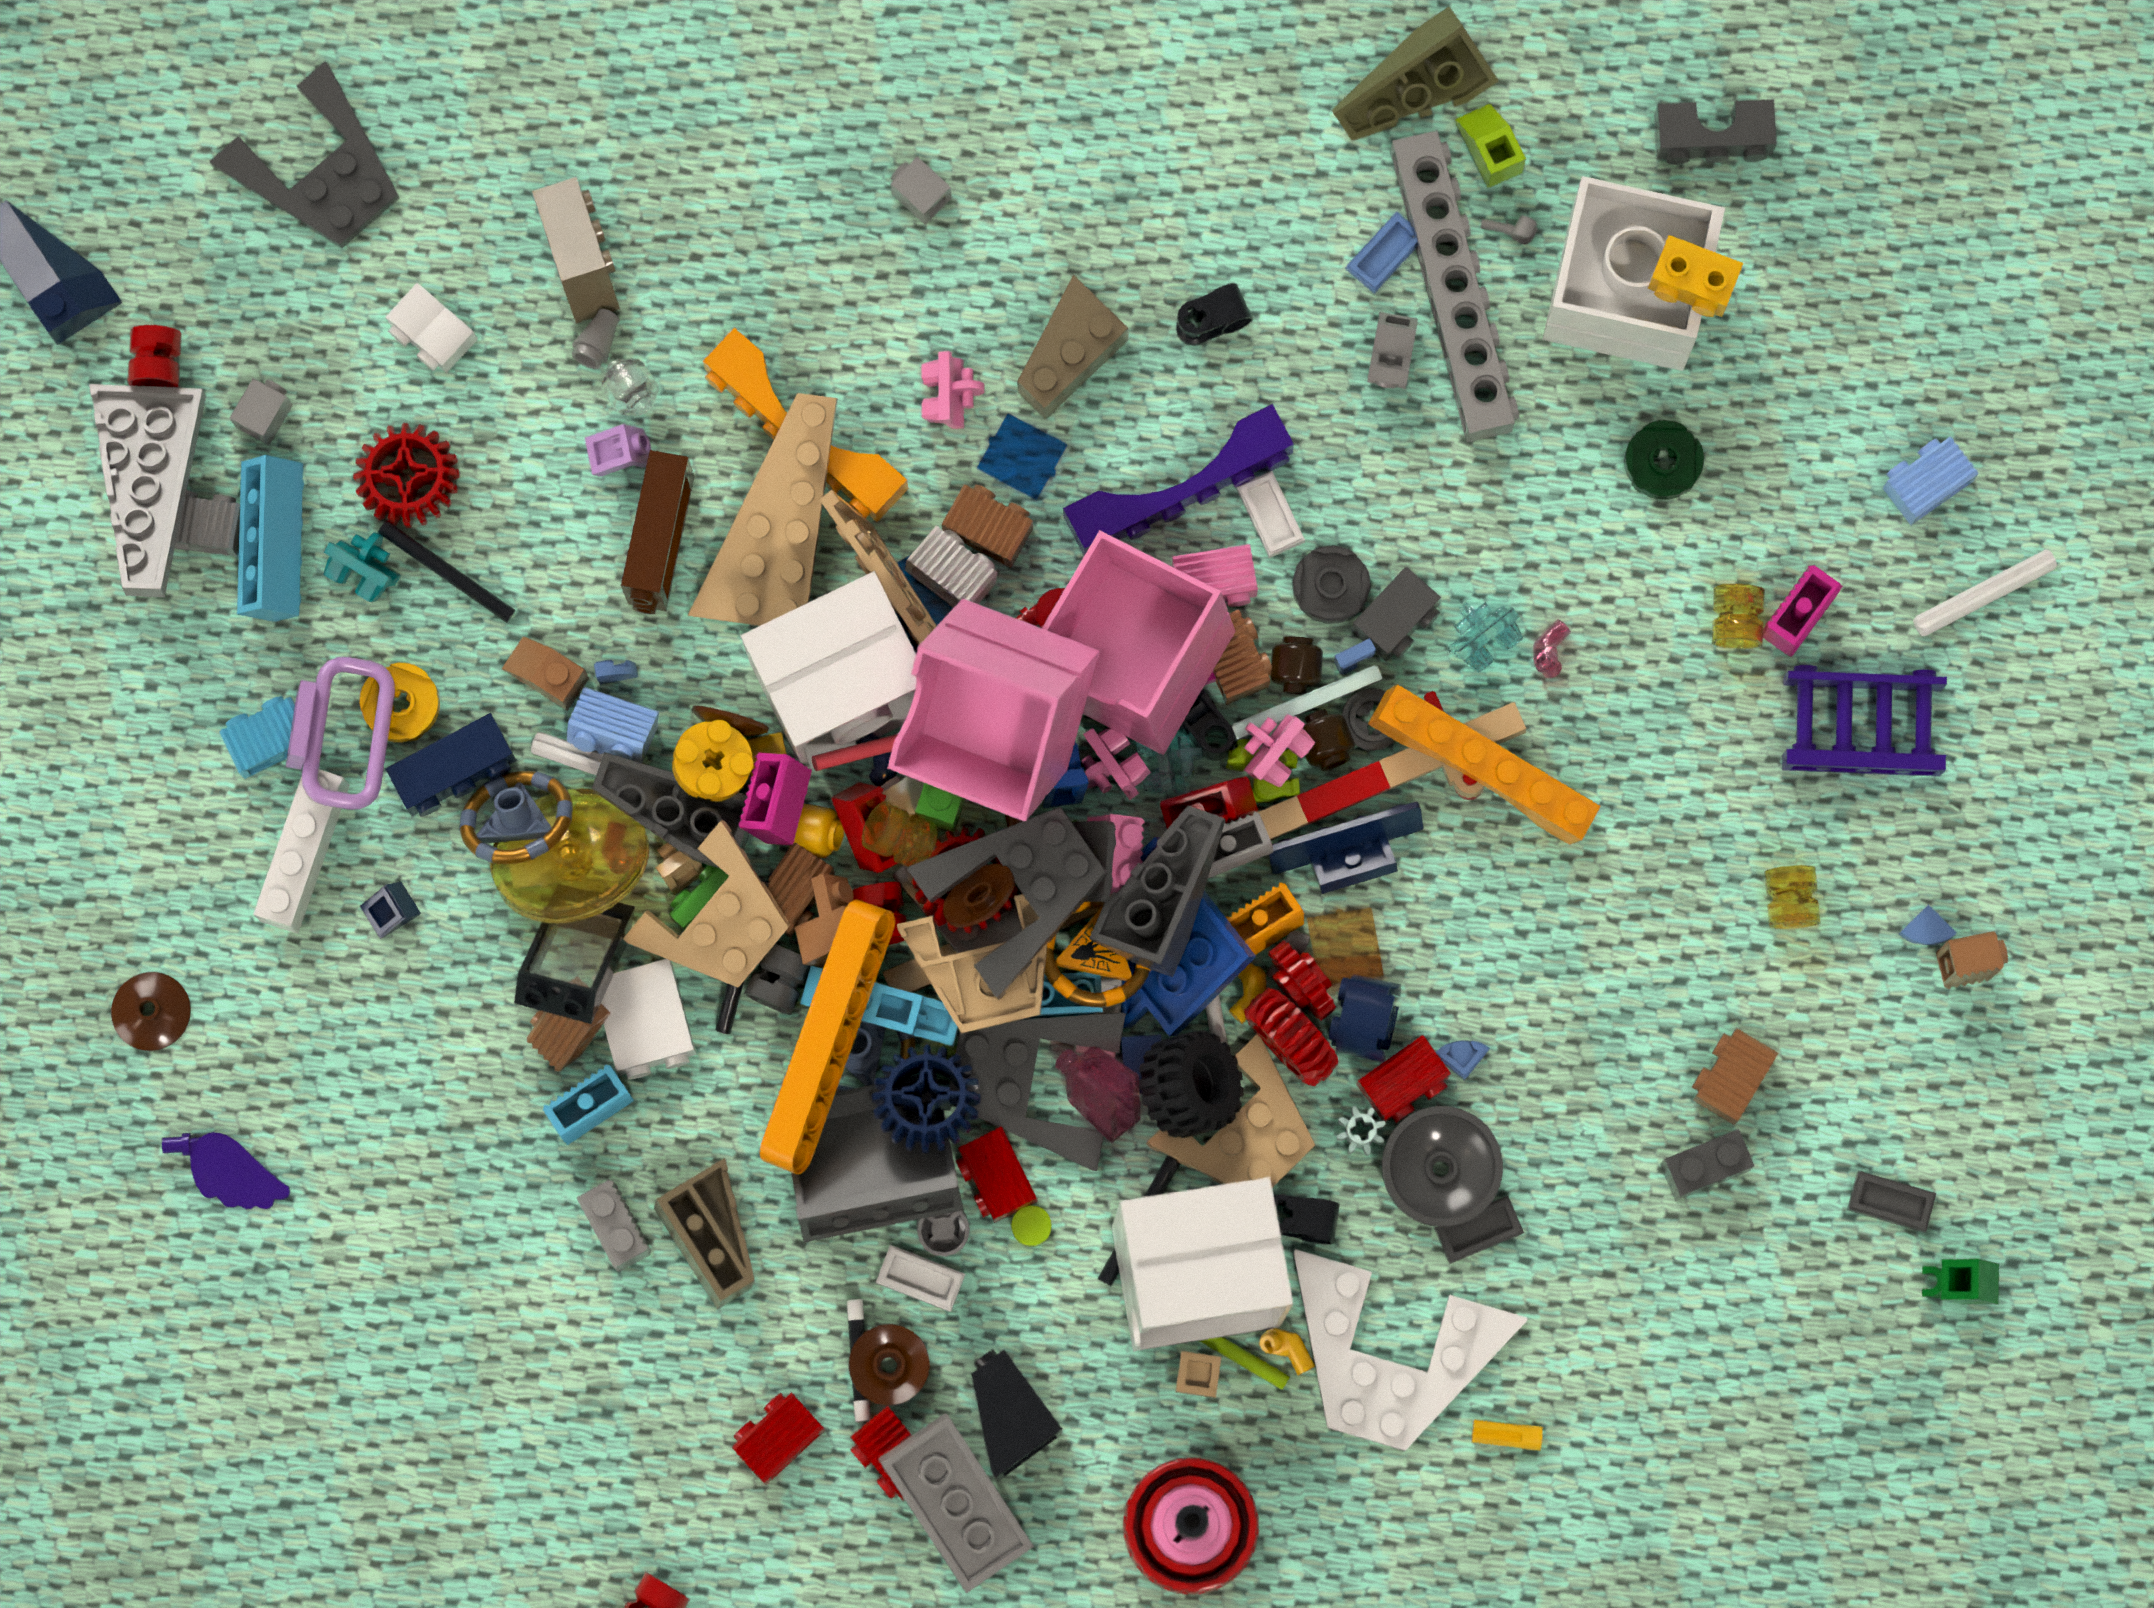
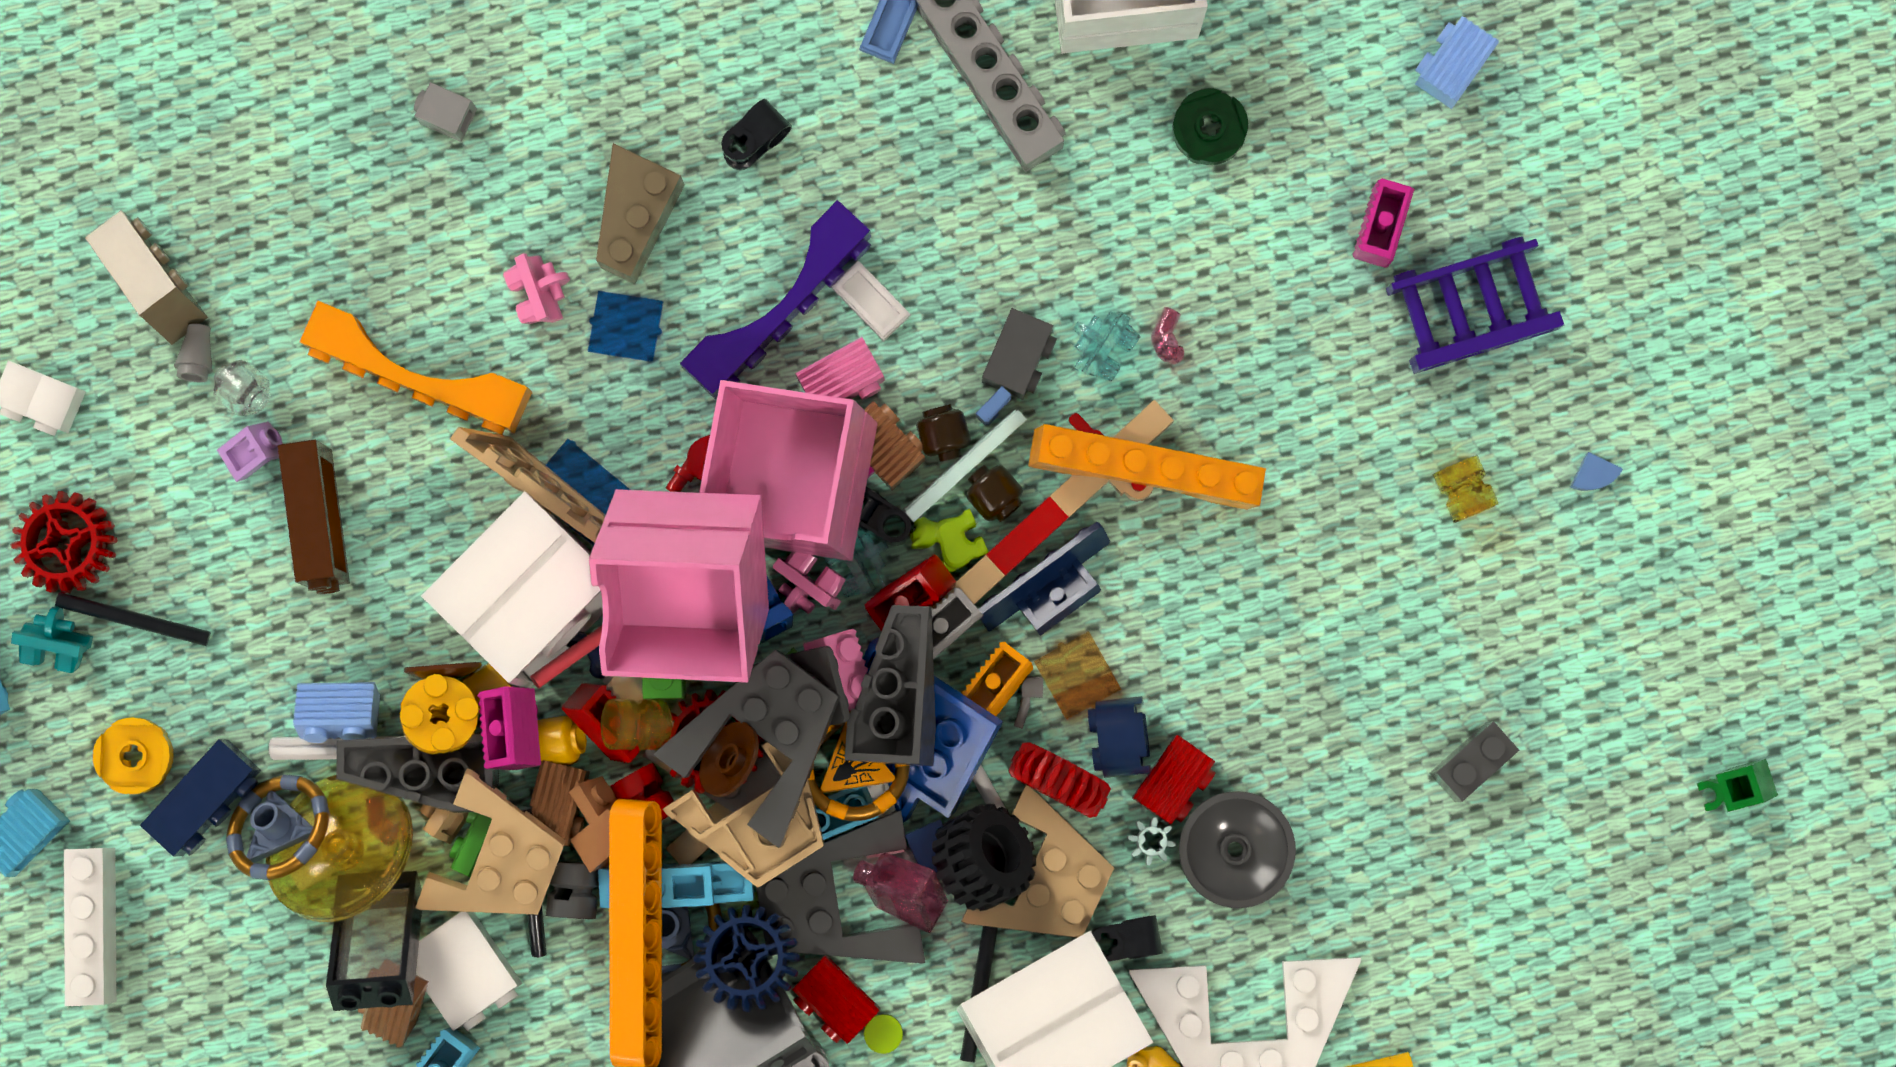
camera: 20 degrees left, 5 degrees up
(309, 729) = (54, 815): lavender bar -> none
(390, 909) = (193, 949): dark blue slope -> none
(546, 672) = (258, 680): medium nougat slope -> none
(608, 672) = (316, 660): medium blue tile -> none
(773, 541) = (424, 487): tan wing -> none
(951, 569) = (598, 455): white brick -> none
(989, 524) = (616, 401): medium nougat brick -> none
(1253, 982) = (1008, 743): yellow arm -> none
(1287, 735) = (946, 516): bright pink hips -> none
(1302, 980) = (1051, 724): red gear -> none
(1326, 595) = (950, 360): dark grey tile -> none
(1359, 706) = (1013, 449): dark grey gear -> none
(1392, 350) = (929, 111): light grey brick -> none
(1462, 1056) = (1218, 738): medium blue tile -> none
(1488, 1229) = (1301, 886): dark grey tile -> none
(1734, 1076) = (1469, 670): medium nougat brick -> none
(1738, 630) = (1332, 260): clear yellow wheel -> none
(1891, 1201) = (1648, 734): dark grey tile -> none
(1971, 959) = (1648, 491): medium nougat brick -> none
(1985, 592) = (1540, 148): white axle -> none

